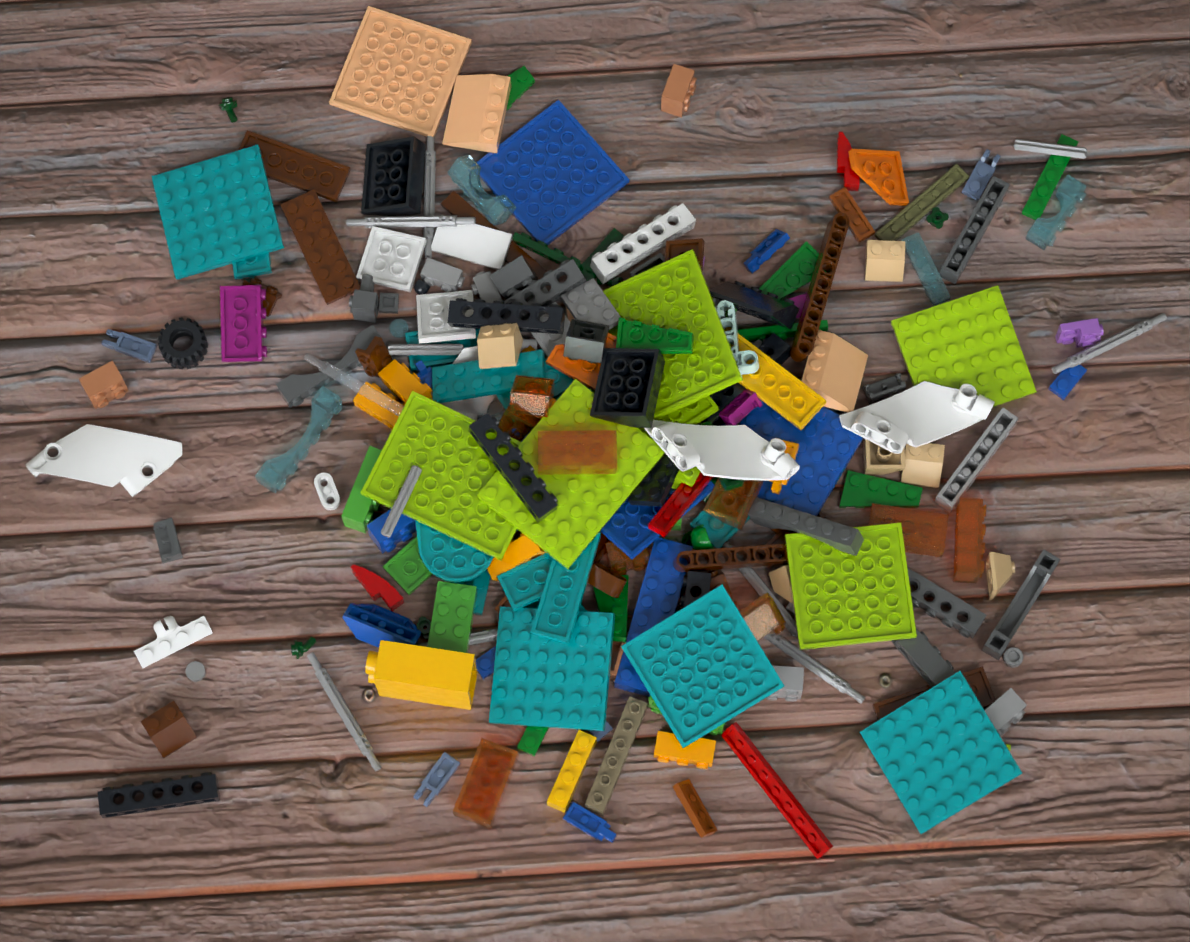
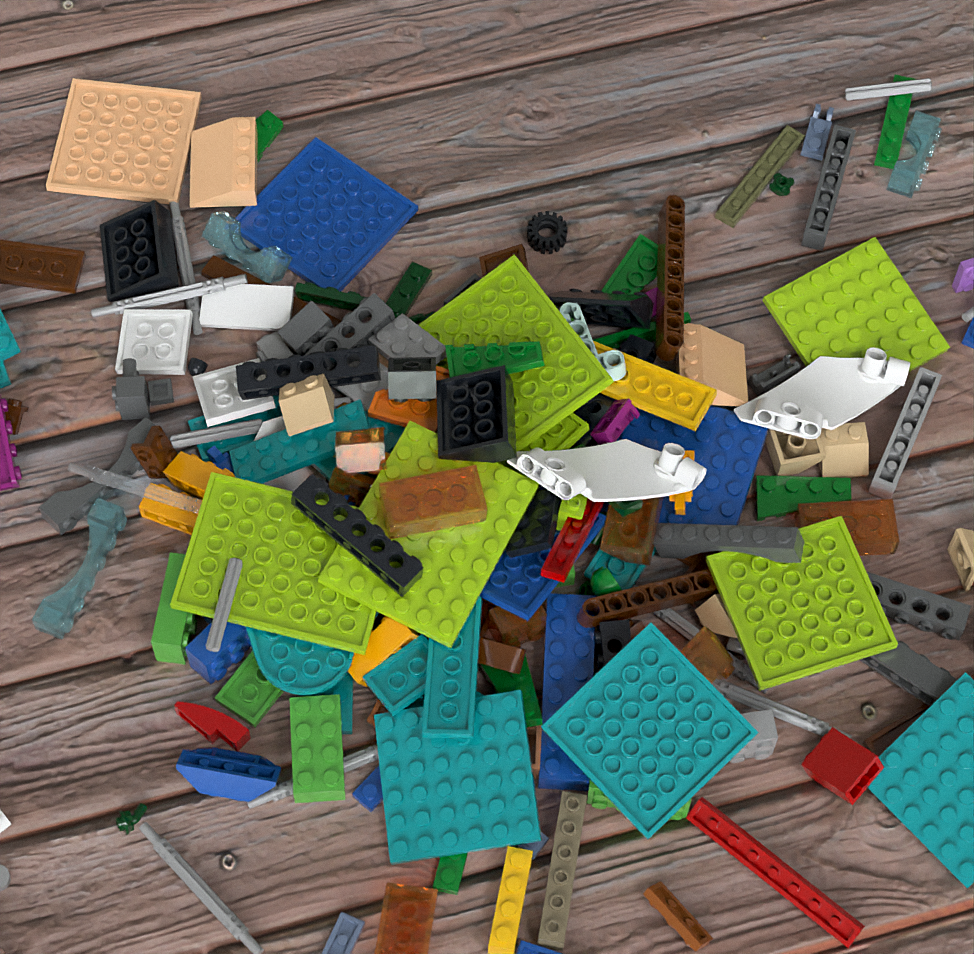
camera: 15 degrees left, 10 degrees down
(320, 246) = (65, 344): reddish brown plate -> none
(327, 492) = (128, 623): white plate -> none
(399, 328) = (178, 418): clear light blue plate -> none
(423, 621) = (282, 755): dark green plate -> none
(423, 674) = (294, 815): yellow brick -> none
(442, 275) = (219, 348): light grey brick -> none
(606, 270) = (449, 269): white brick -> none
(678, 90) = (453, 101): nougat brick -> none
(697, 753) = (629, 846): light orange brick -> none
(730, 213) = (547, 243): none -> black tyre
(765, 250) = (594, 252): blue hinge -> none
(848, 721) = (842, 765): none -> red brick
(851, 179) = (664, 146): red slope -> none
(858, 223) = (695, 206): dark orange plate -> none
(882, 172) = (707, 146): orange plate -> none
(884, 260) = (736, 237): tan slope -> none
(926, 269) = (784, 239): clear light blue plate -> none
(968, 540) = (924, 524): clear orange brick -> none

